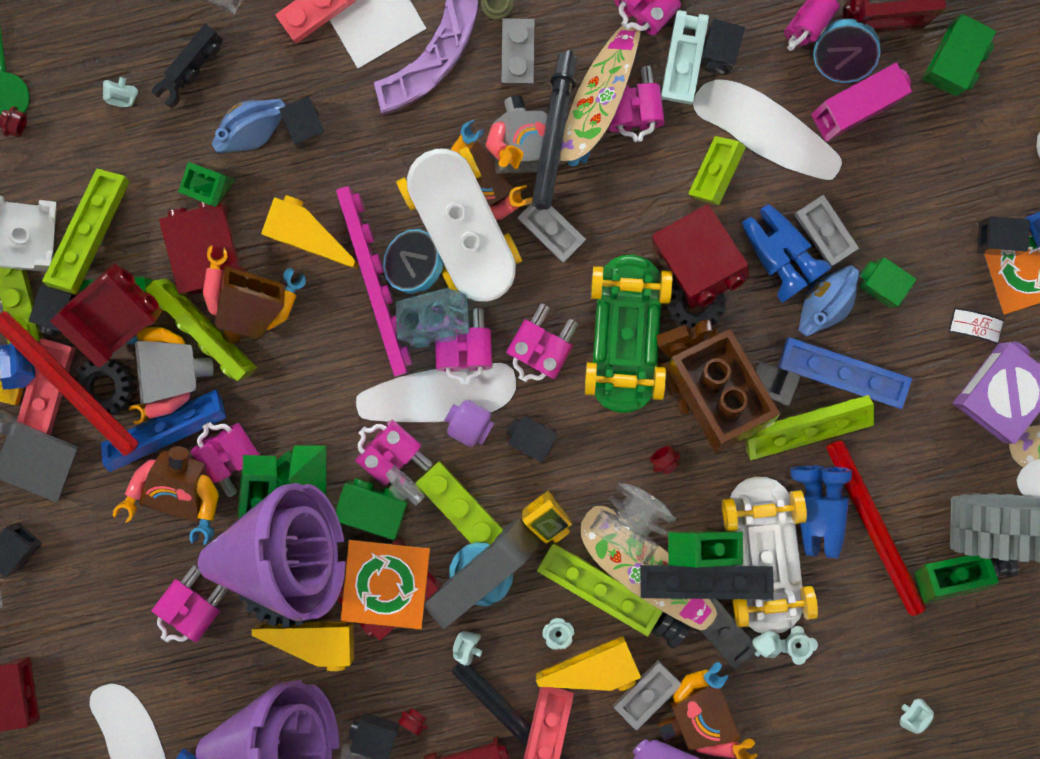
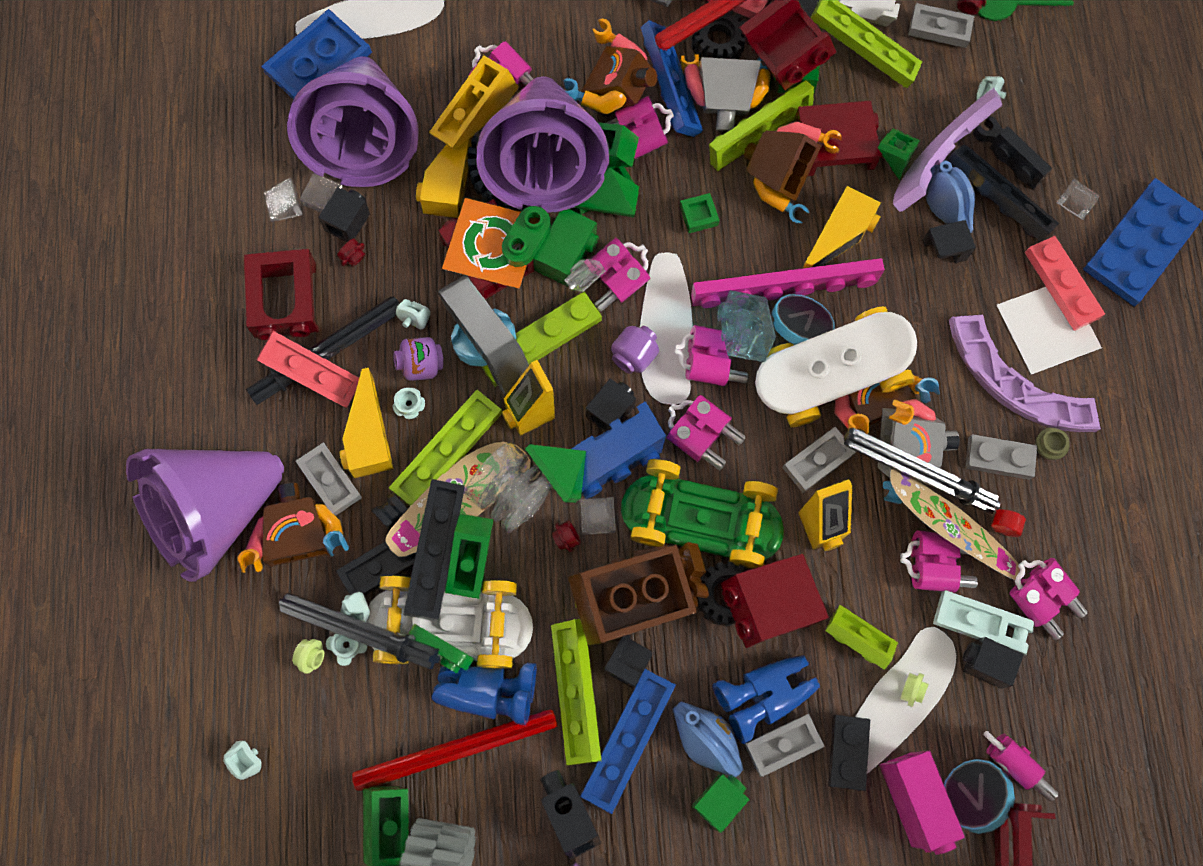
camera: 90 degrees right, 15 degrees down
(48, 152) = (941, 25): none -> light grey plate
(235, 161) = (917, 178): none -> lavender tile
(236, 71) = (1007, 196): none -> black plate
(239, 630) = (475, 103): none -> yellow slope
(311, 380) = (699, 213): none -> green plate
(375, 549) = (527, 234): none -> green plate
(514, 633) = (418, 358): none -> medium lavender head
(583, 430) = (620, 450): none -> blue wedge
(586, 41) = (1008, 523): none -> red piece
(610, 477) = (562, 469): none -> green slope
(614, 215) = (828, 516): none -> yellow slope
(639, 433) = (597, 515): none -> clear plate
(758, 116) = (914, 689): none -> yellowish green plate
(799, 548) = (451, 656): none -> green plate
(806, 593) = (403, 647): none -> black axle
(815, 677) = (308, 655): none -> yellowish green plate
(822, 170) = (849, 752): none -> black plate
(935, 413) = (575, 828): none -> black torso

